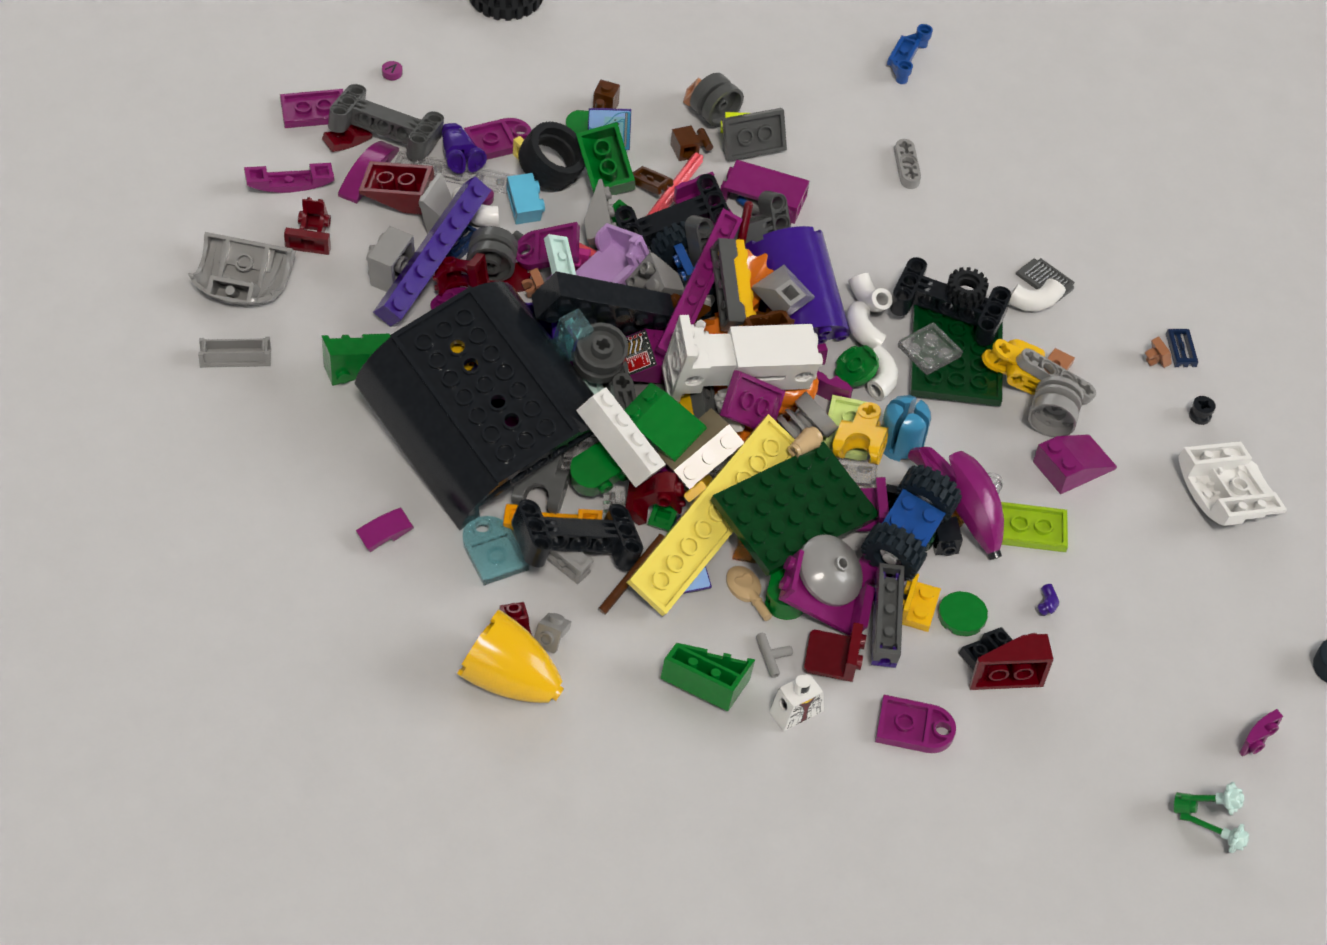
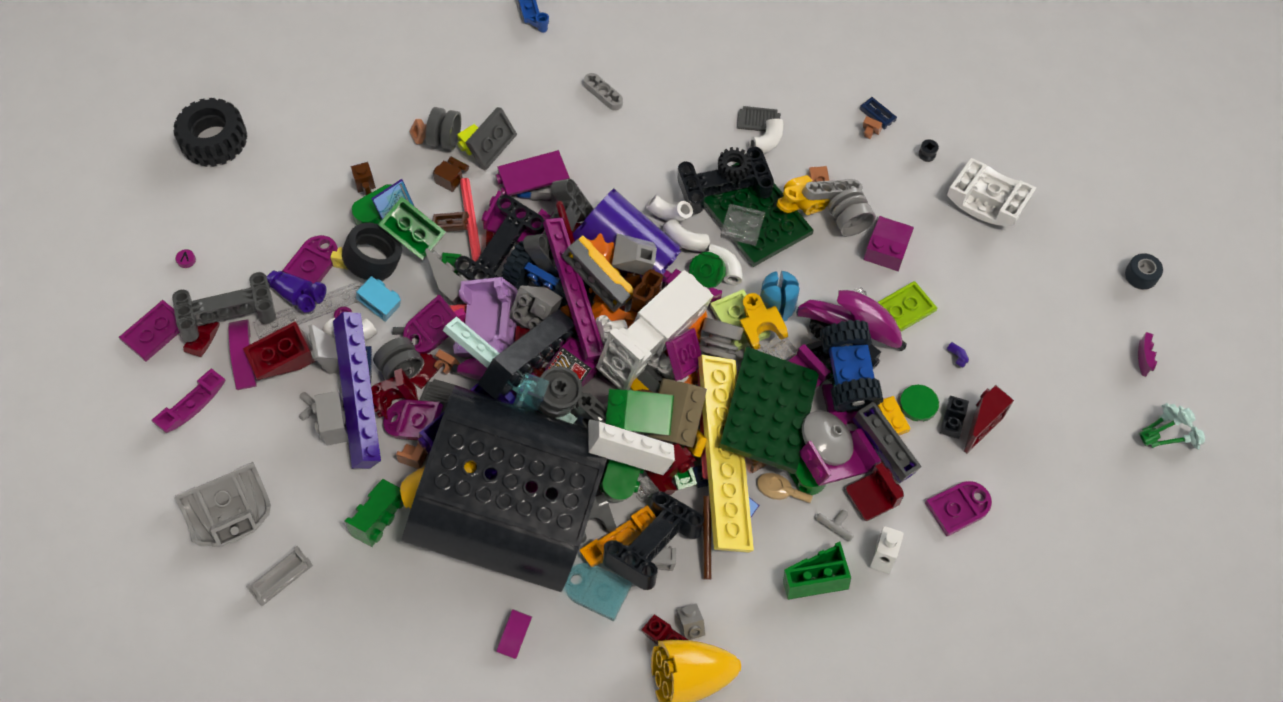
camera: 35 degrees left, 10 degrees up
(313, 218) = (240, 421): dark red tile -> none
(806, 441) = (738, 356): tan cone -> none

